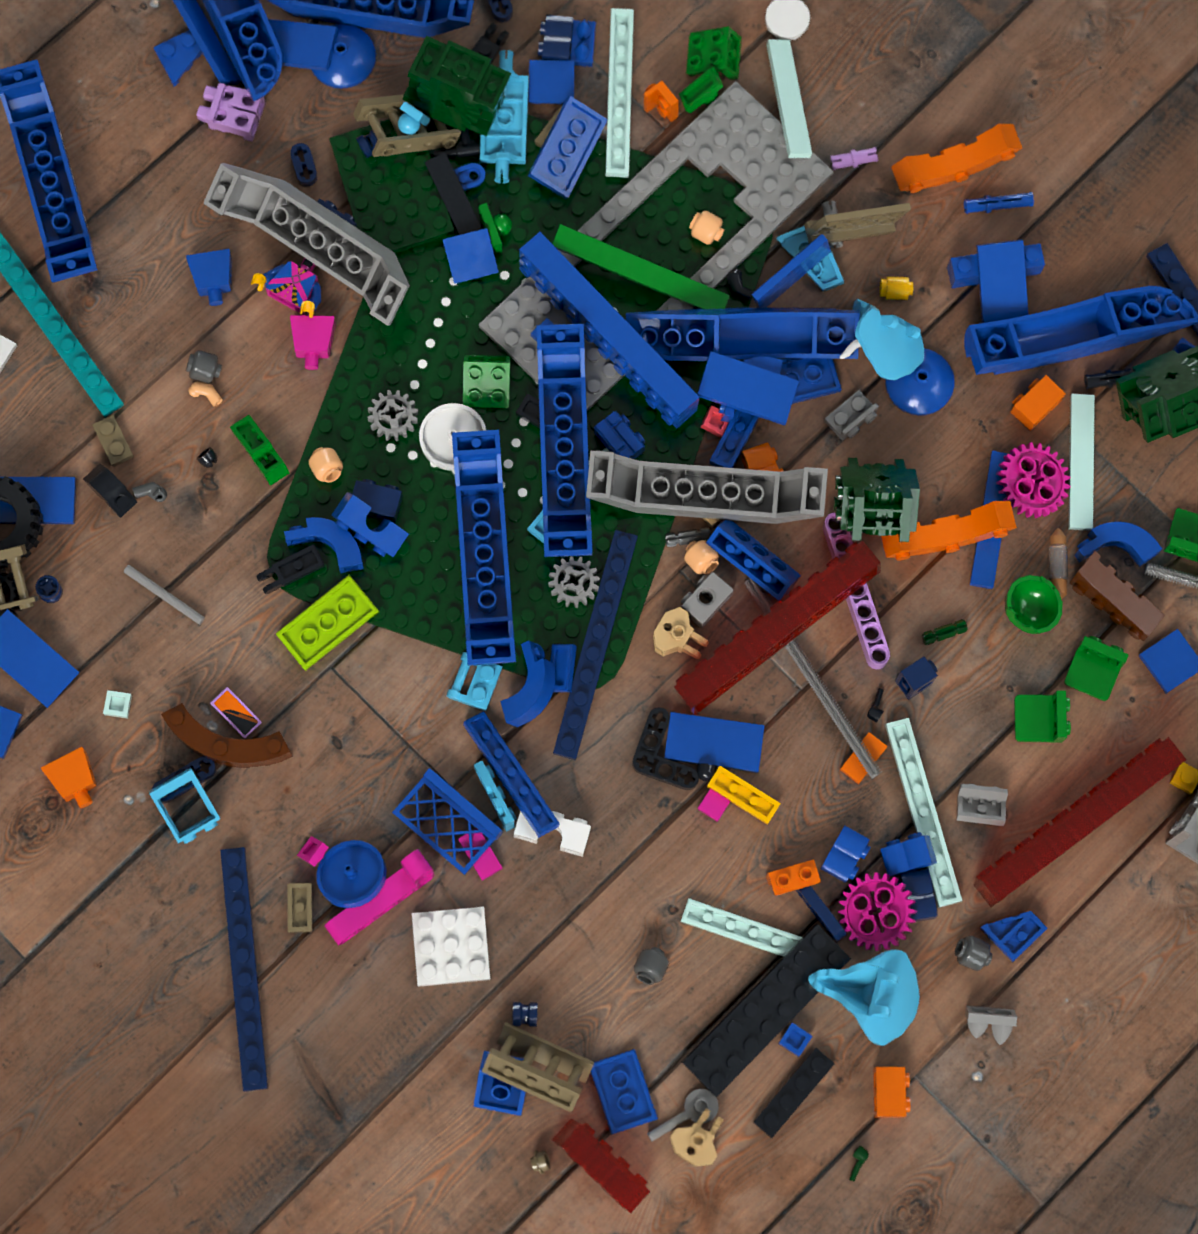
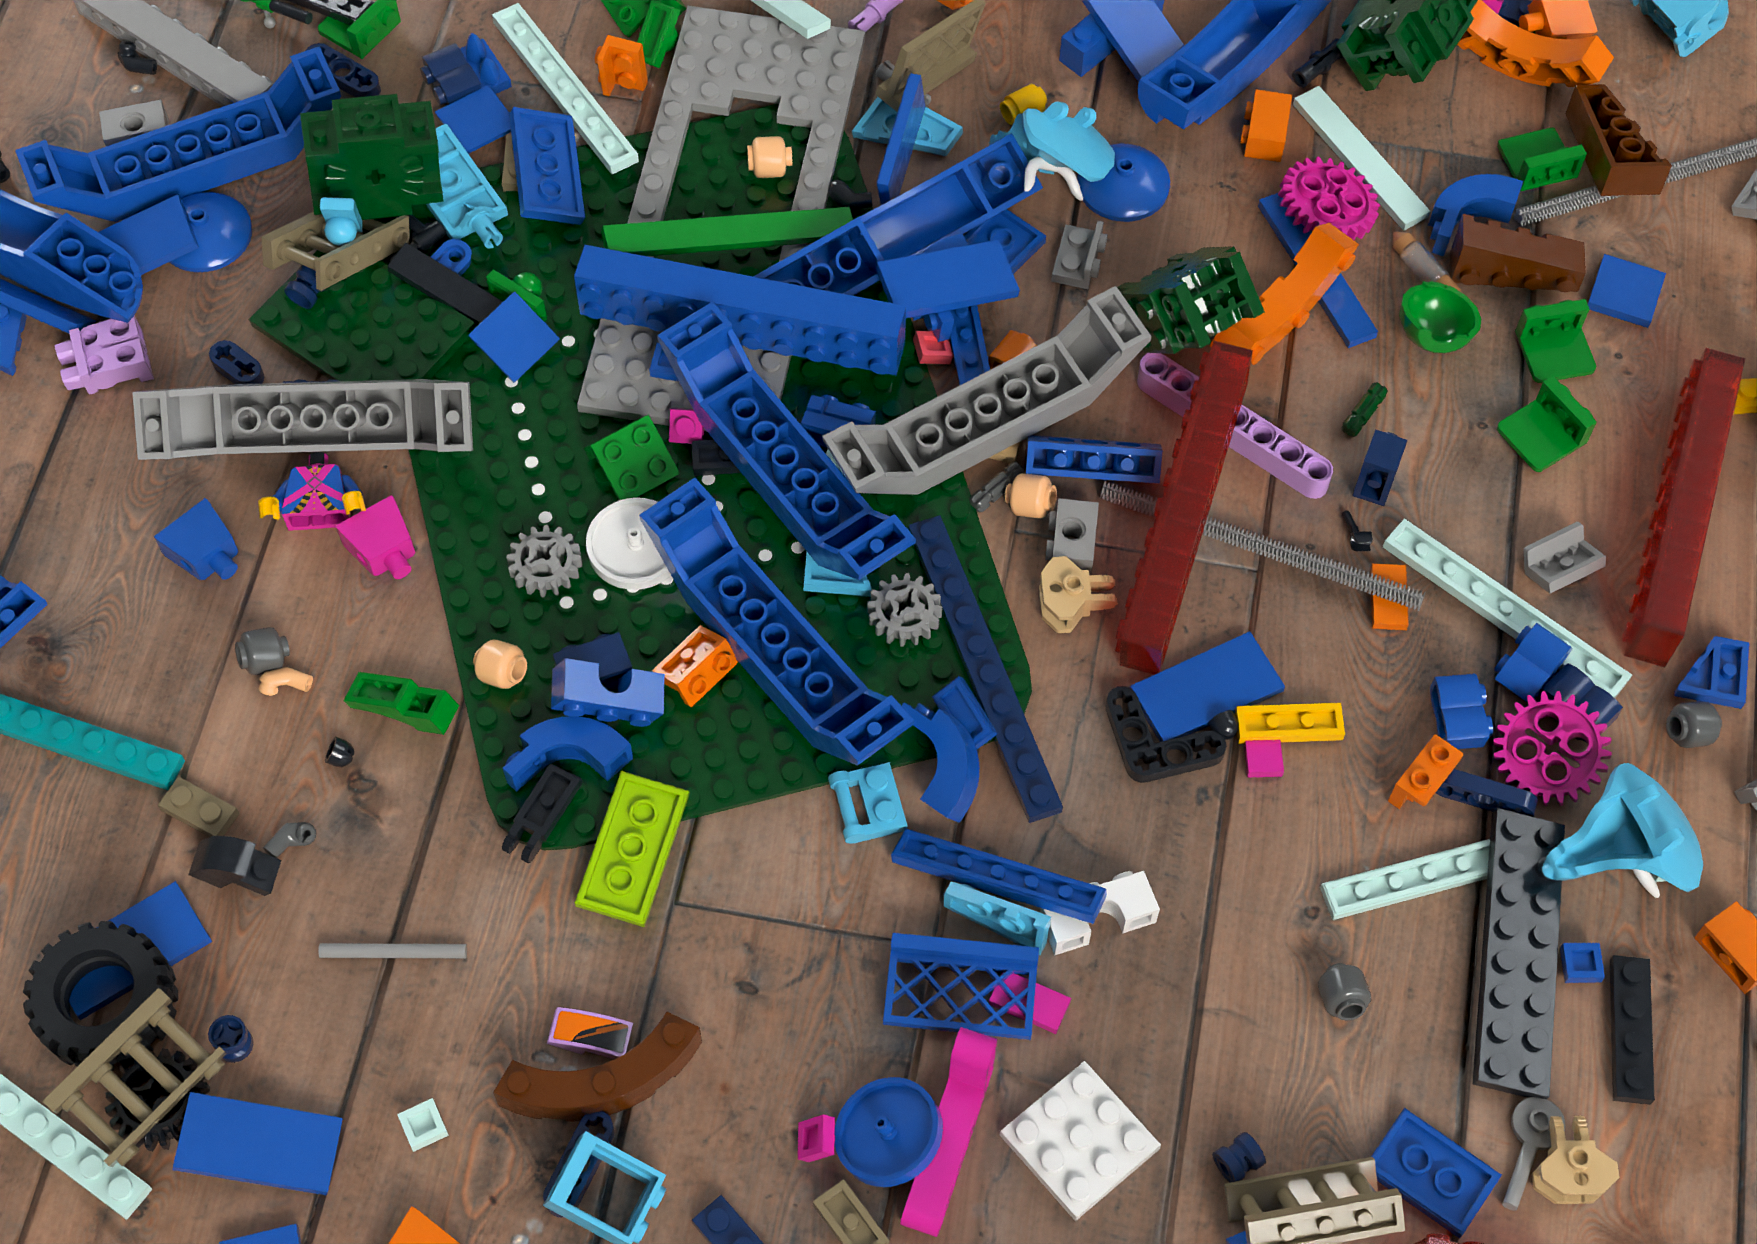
camera: 30 degrees left, 15 degrees down
(434, 537) = (697, 664): none -> orange bracket
(529, 381) = (684, 426): none -> dark pink plate

